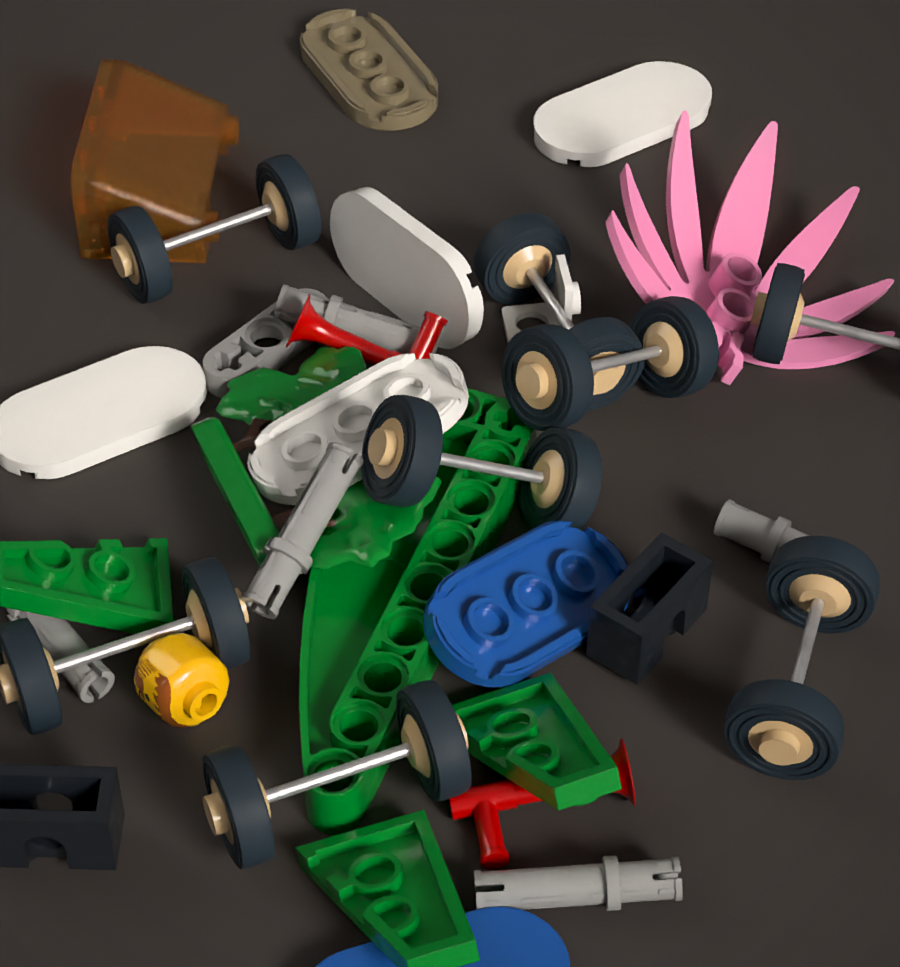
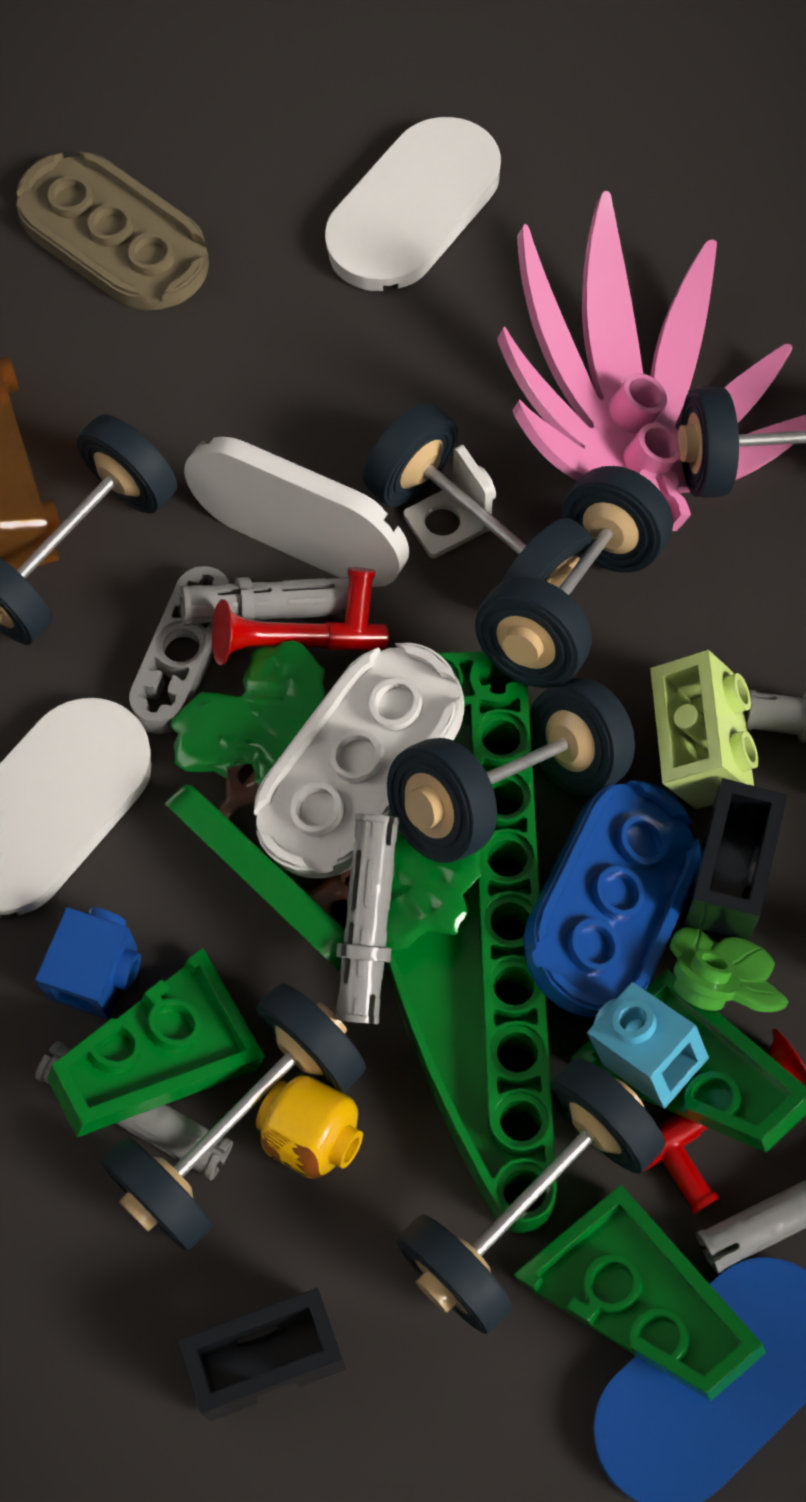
camera: 20 degrees left, 20 degrees up
(69, 509) = (89, 961): none -> blue brick
(495, 698) = (647, 1044): none -> medium azure brick
(584, 679) = (723, 971): none -> bright green plate
(670, 494) = (702, 727): none -> yellowish green brick

